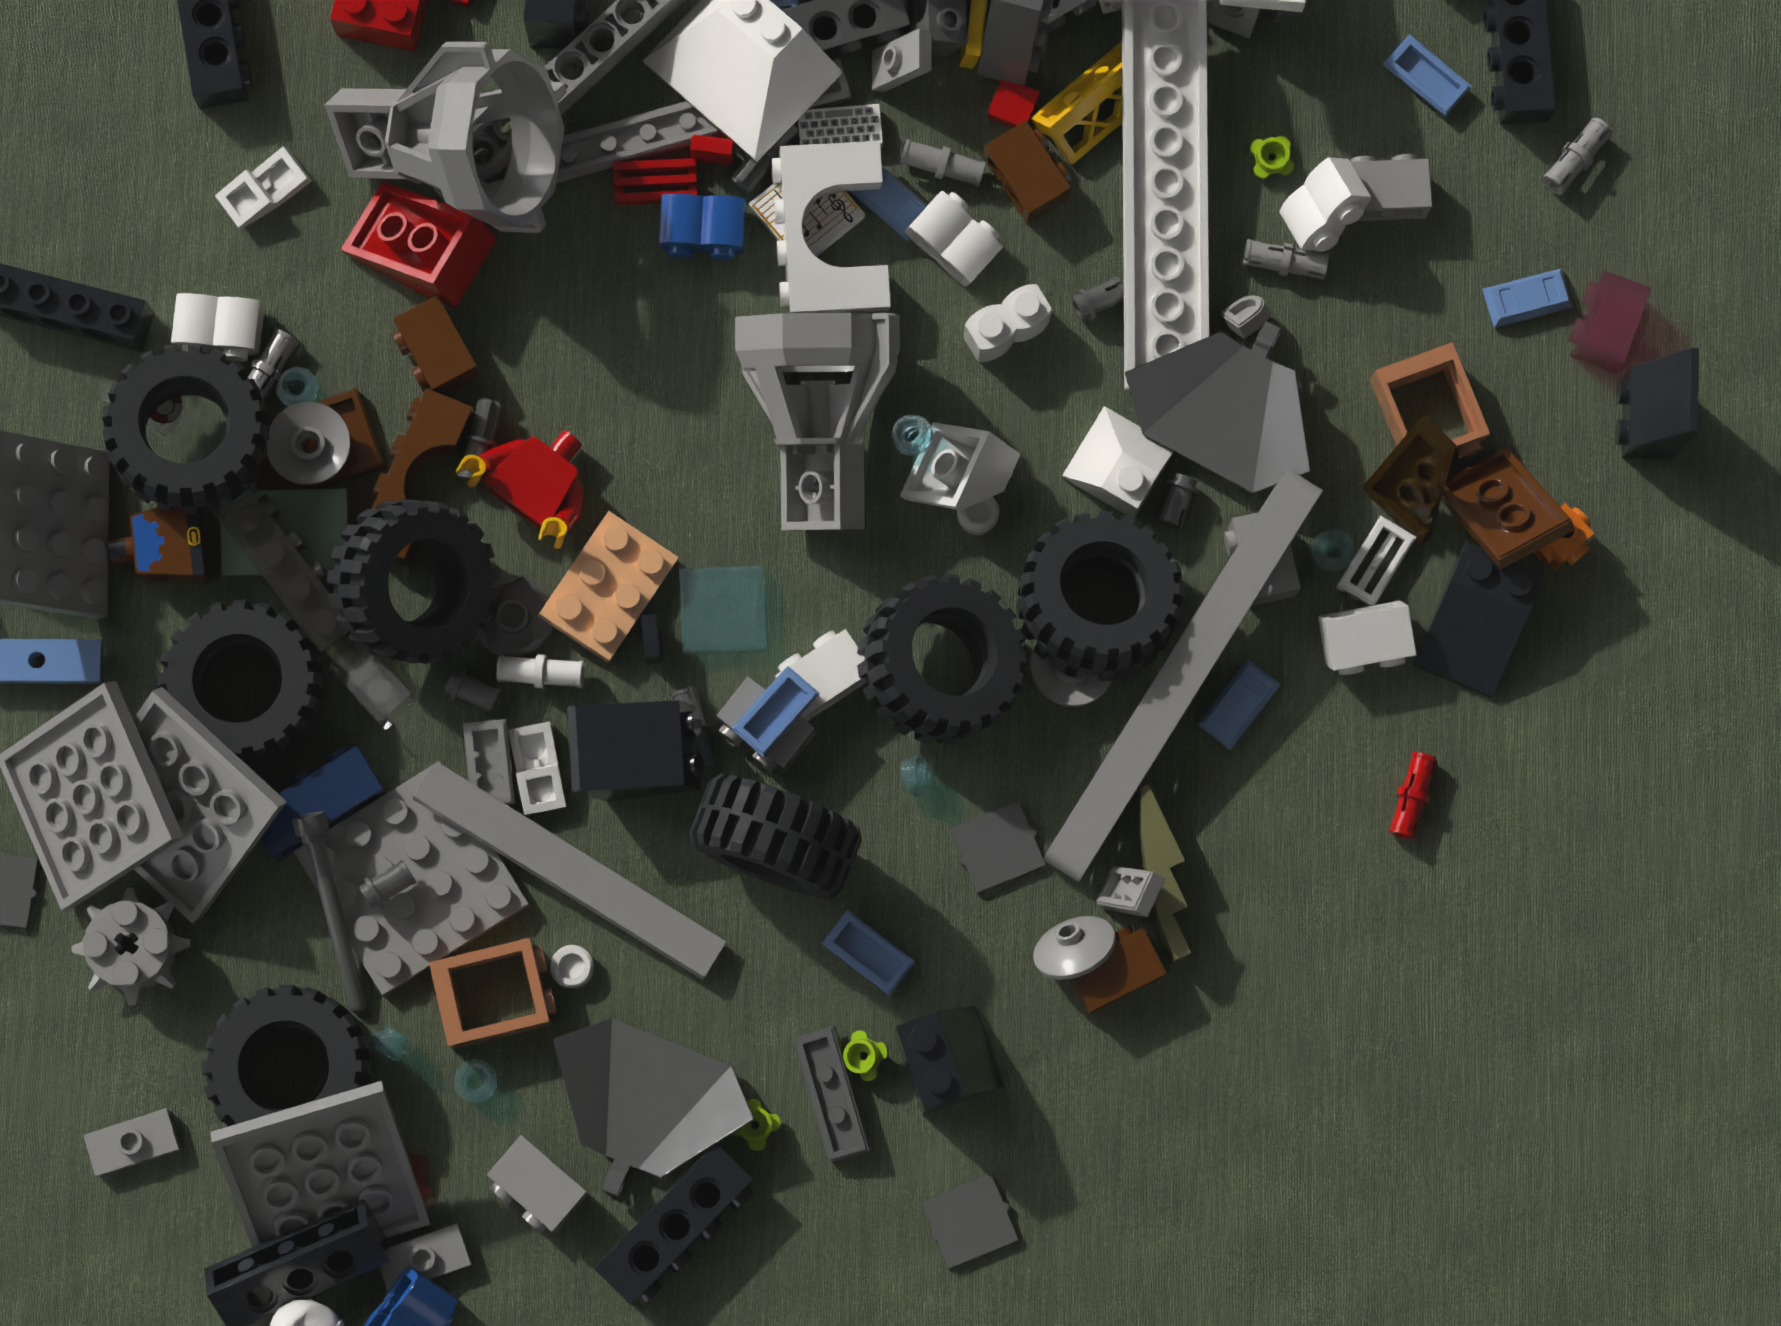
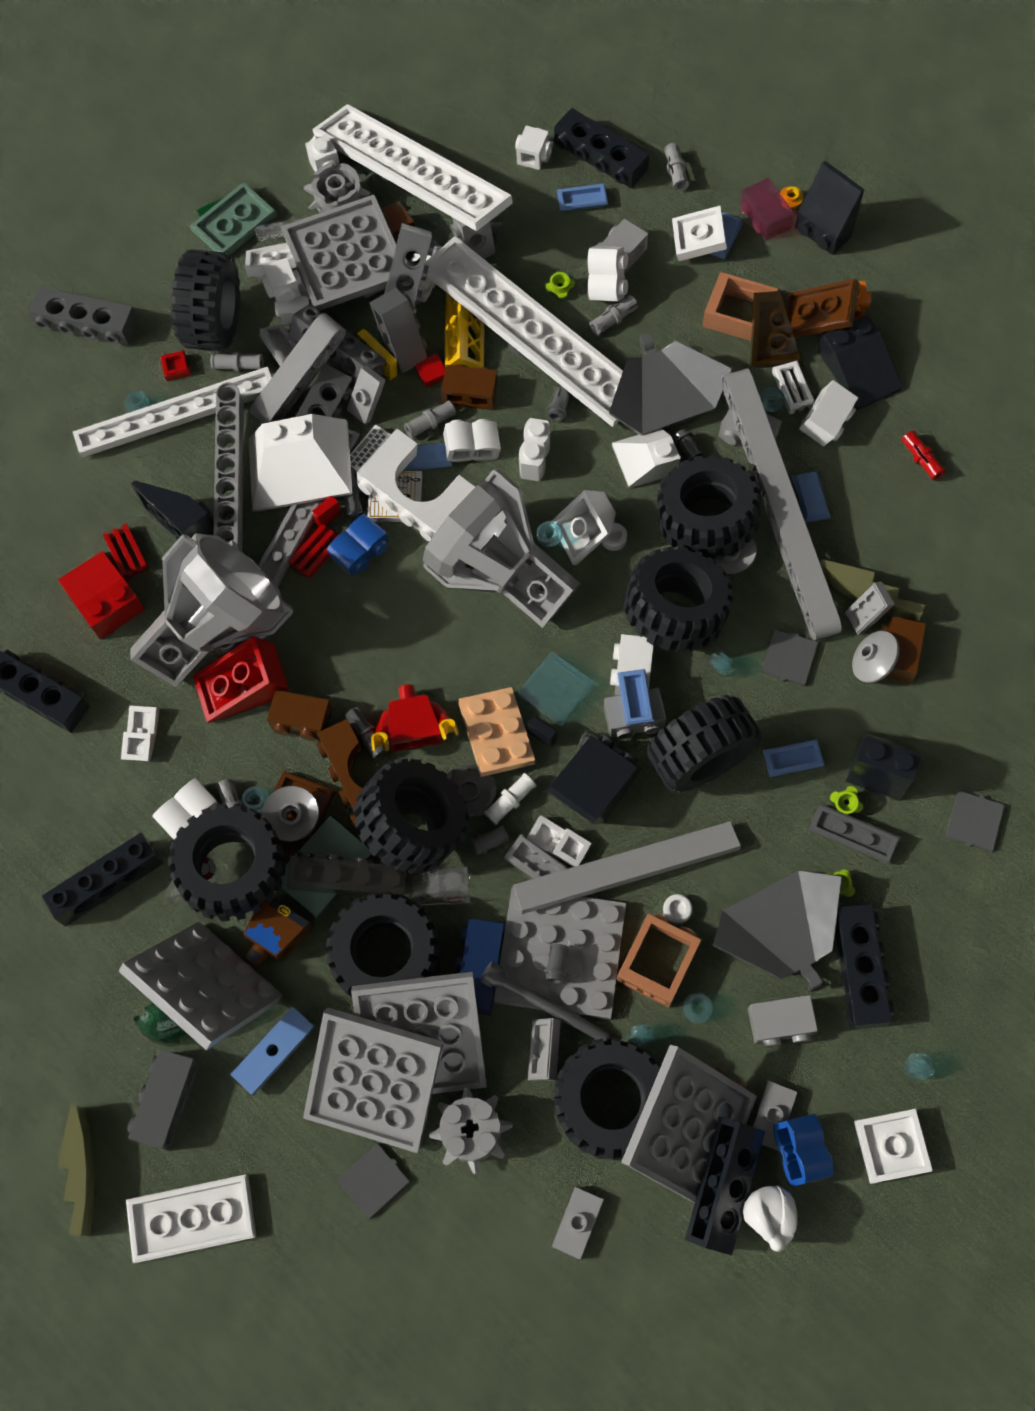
camera: 40 degrees left, 10 degrees down
(285, 951) = (544, 1049): none -> light grey plate
(1245, 315) = (625, 348): light grey tile -> none
(1494, 268) = (699, 233): none -> white plate
(1650, 345) = (792, 196): none -> yellow plate

